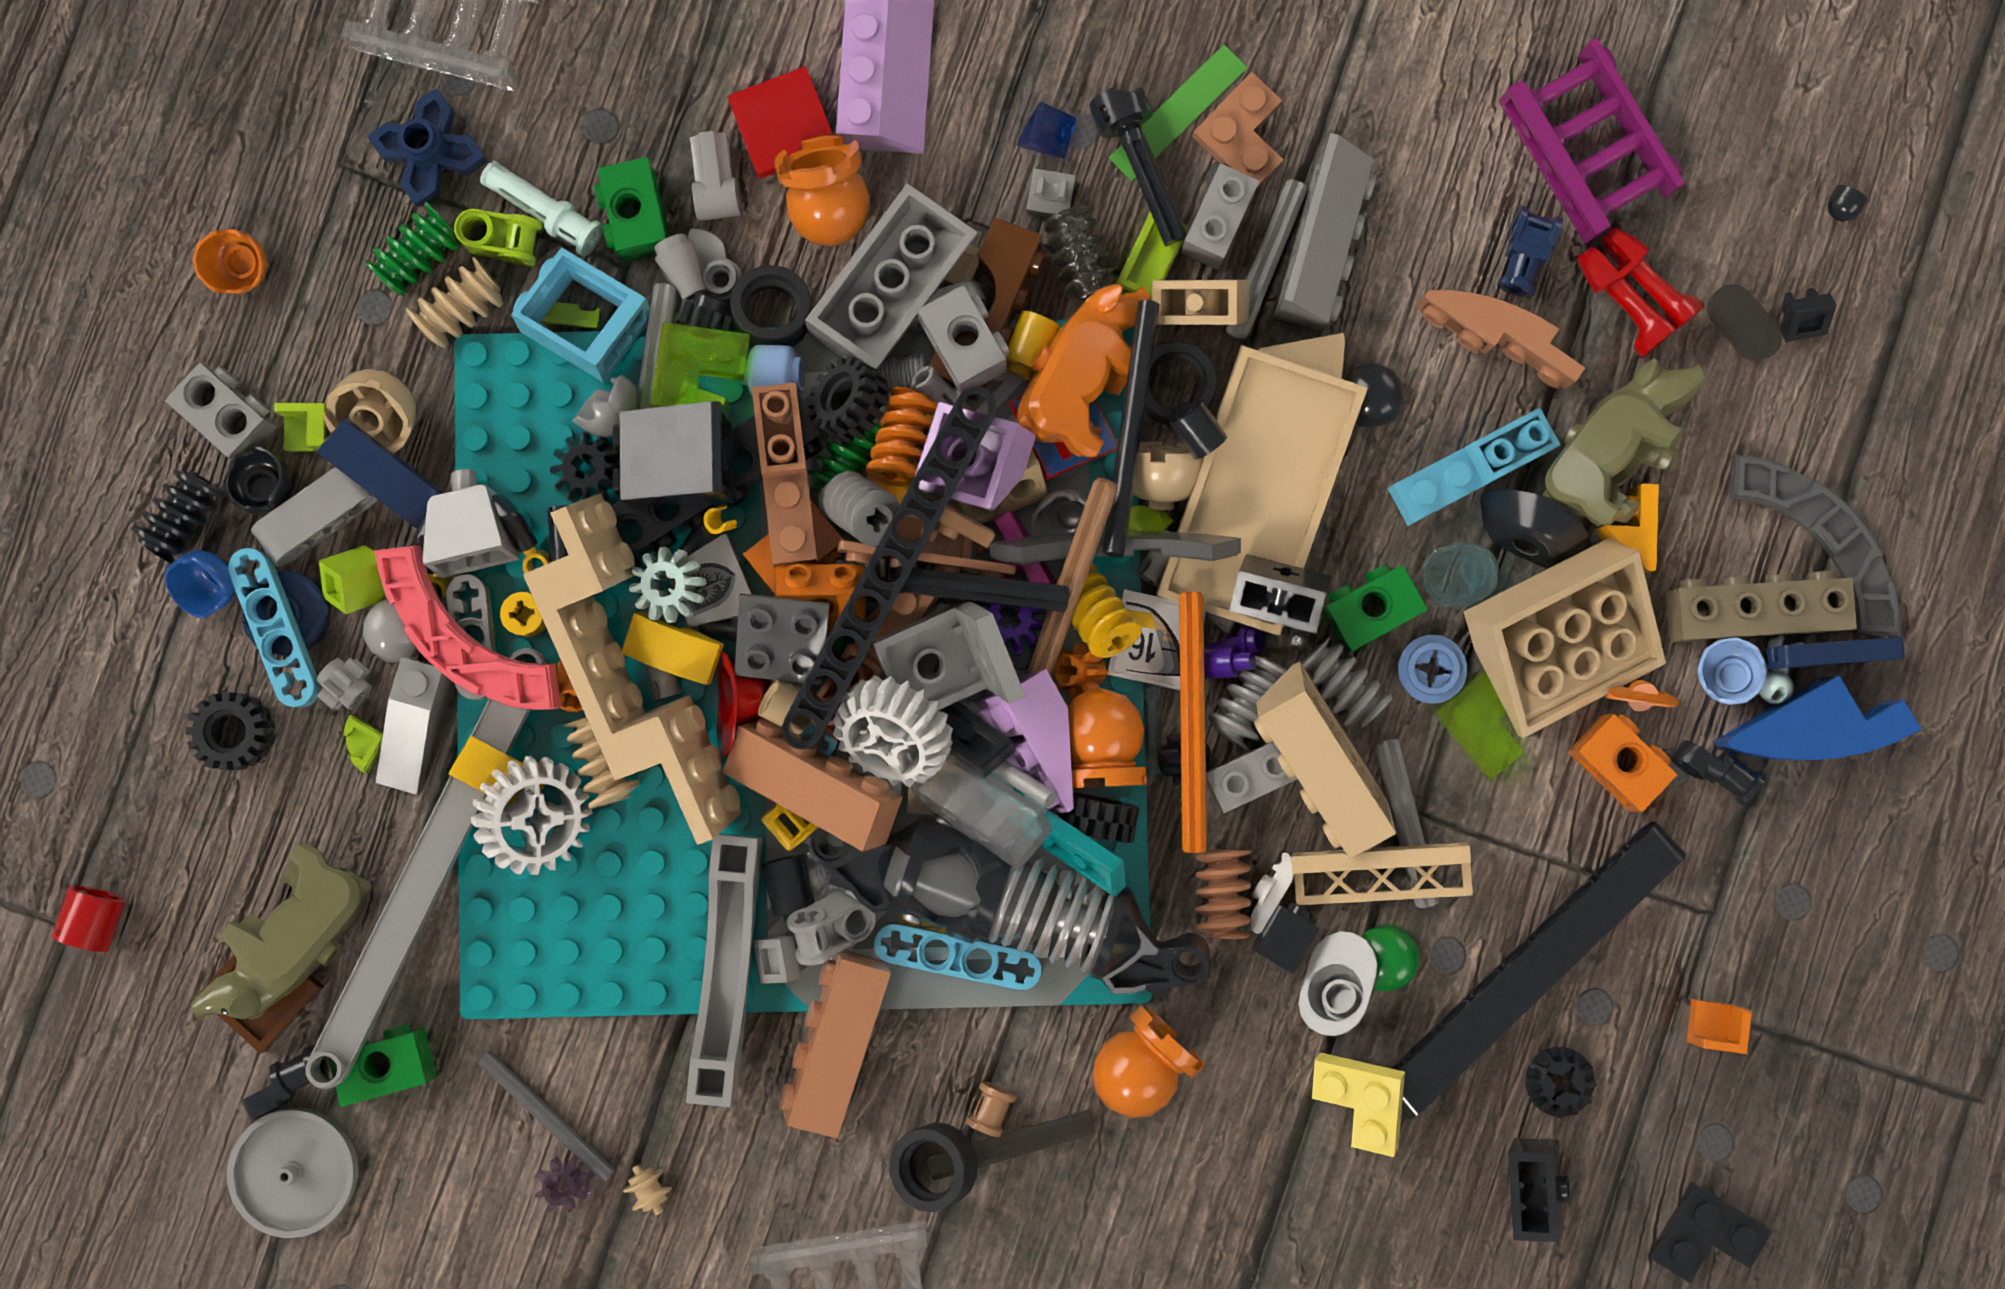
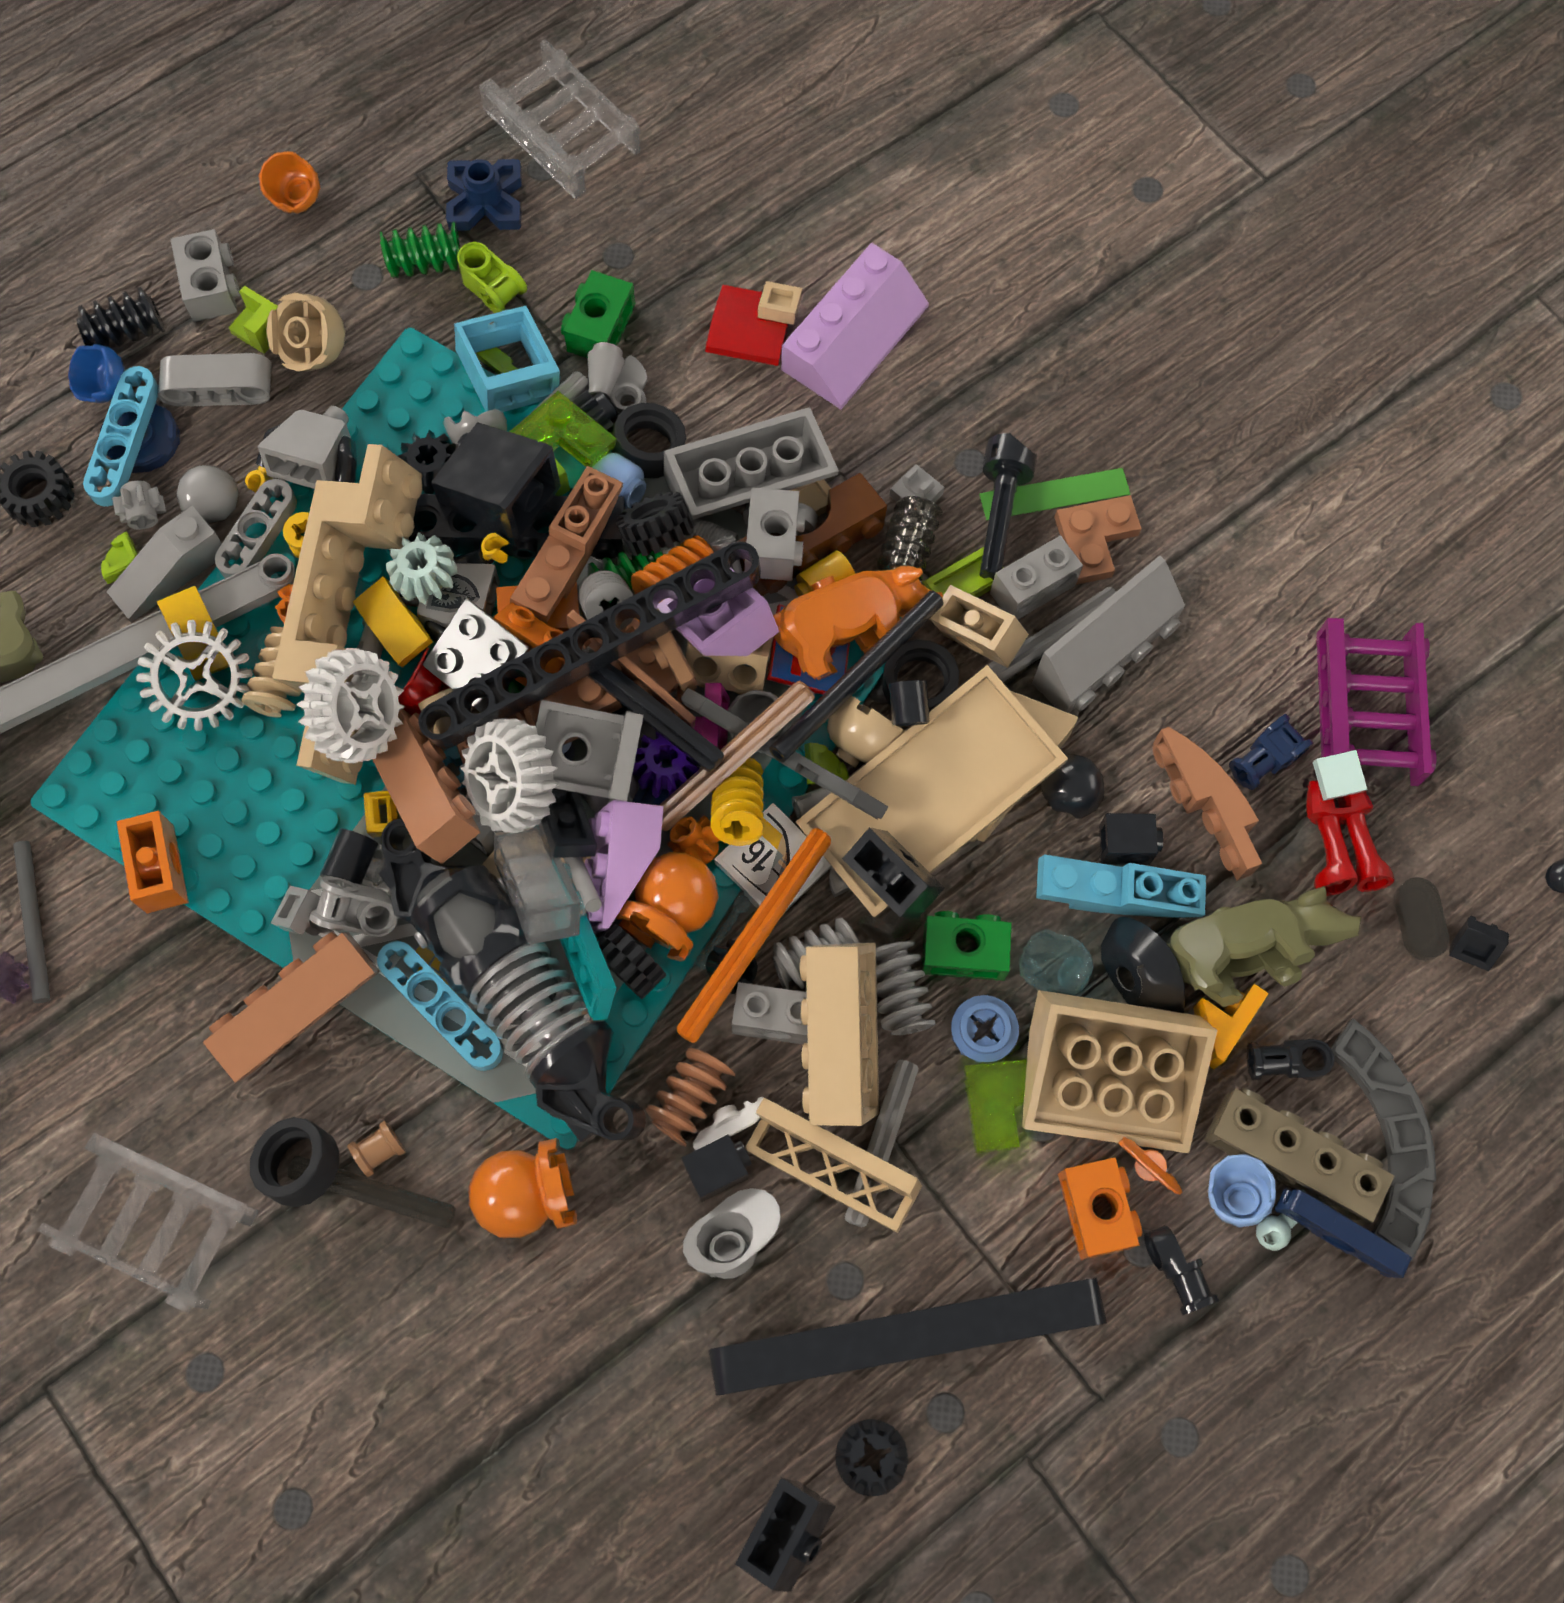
camera: 30 degrees right, 15 degrees down
(258, 481) = (192, 332): black hair -> none
(351, 579) = (206, 440): lime panel -> none
(378, 471) = (278, 369): dark blue tile -> none
(450, 647) = (232, 518): coral tile -> none
(457, 304) = (424, 303): tan piece -> none
(557, 217) = (540, 290): light aqua pin -> none
(623, 1004) = (152, 862): none -> orange brick
(647, 1189) = (60, 1028): tan wheel -> none
(711, 763) = (338, 707): none -> white gear
(714, 187) = (668, 338): light grey piece -> none
(725, 983) = (200, 942): light grey arch -> none
(798, 83) = (779, 302): none -> tan tile
(825, 192) = (745, 383): orange tile -> none
(1048, 131) = (945, 446): clear blue slope -> none
(1225, 658) = (823, 909): dark purple plant -> none
(1371, 1092) = (699, 1349): light yellow plate -> none
(1396, 956) = (795, 1248): green hair -> none
(1453, 415) = (1129, 838): none -> black brick
(1607, 240) = (1339, 775): none -> light aqua tile
(1704, 527) = (1287, 1059): none -> black connector
(1719, 1026) = (1043, 1499): orange panel -> none
(1820, 725) = (1292, 1291): blue slope -> none

